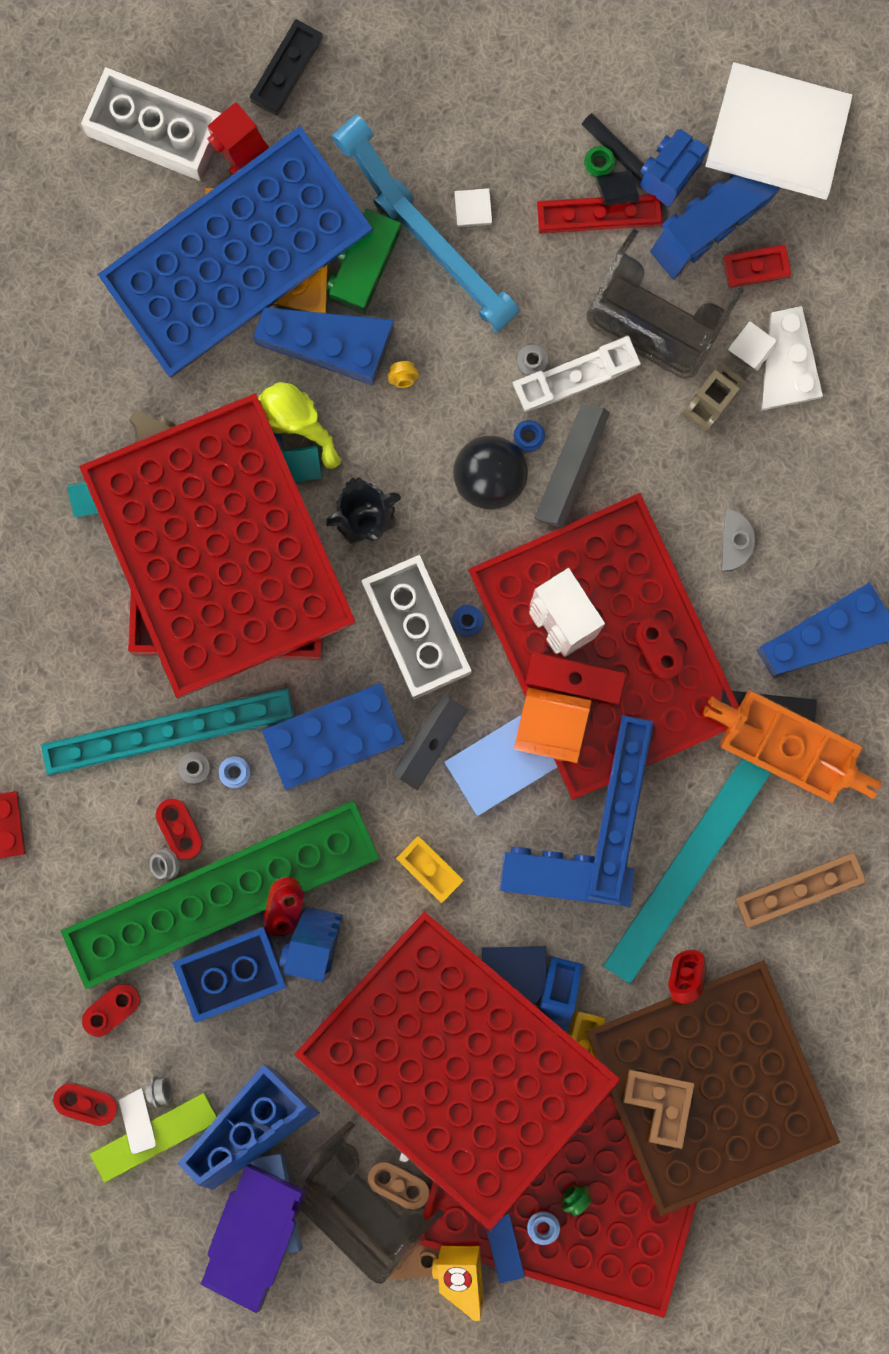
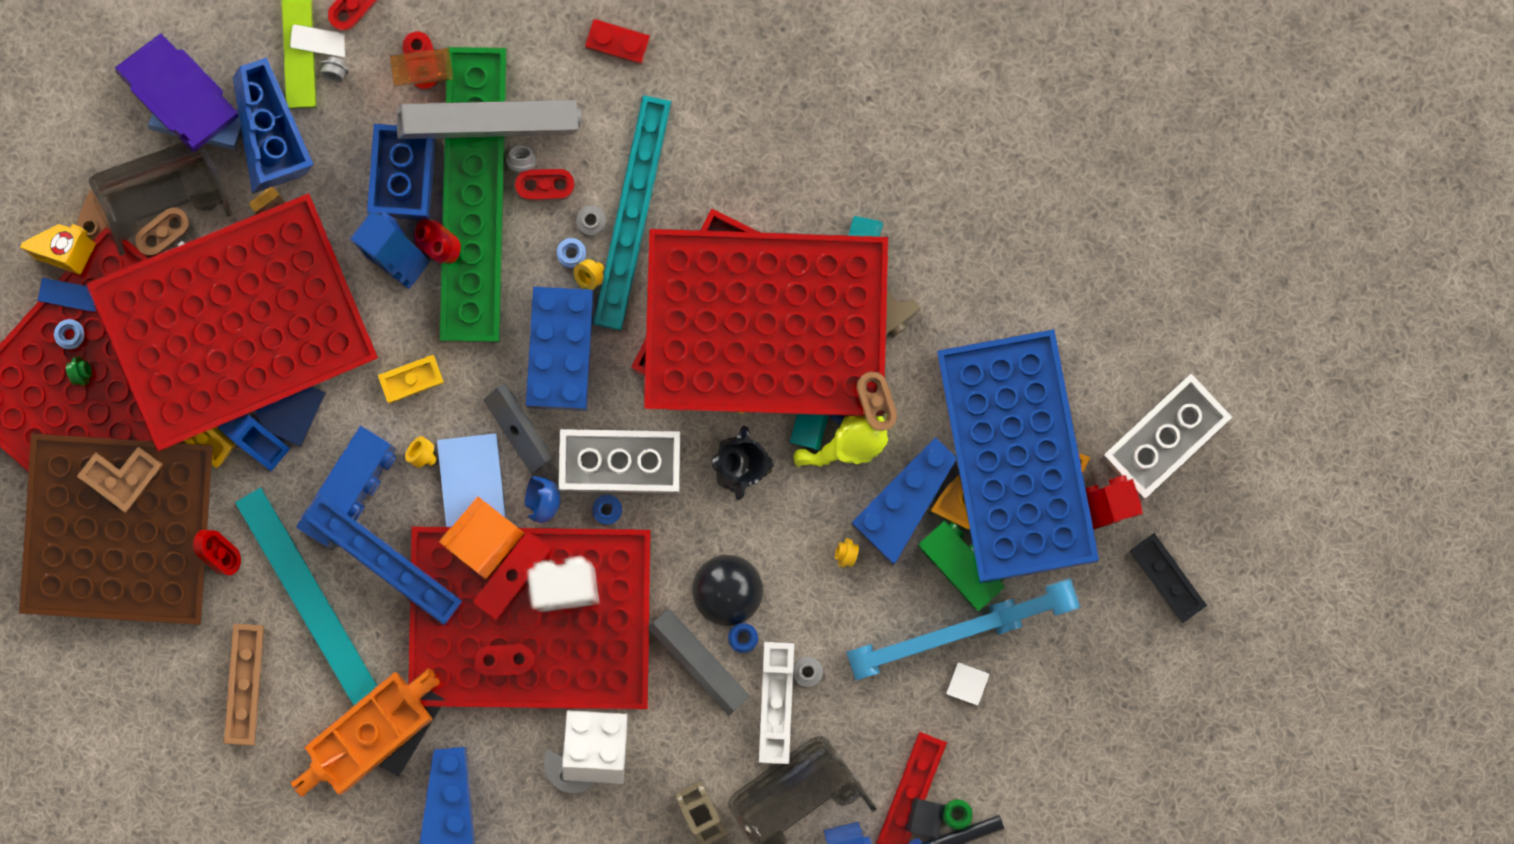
camera: 115 degrees right, 0 degrees up
(117, 1003) = (421, 67): none -> clear orange plate
(140, 913) = (487, 119): none -> light grey brick
(242, 402) = (876, 401): none -> medium nougat plate
(248, 744) = (589, 274): none -> yellow tile
(321, 1092) = (266, 200): none -> pearl gold tile
(476, 683) = (542, 498): none -> blue hair
(497, 826) = (420, 452): none -> yellow tile
(700, 522) = (595, 747): none -> white brick

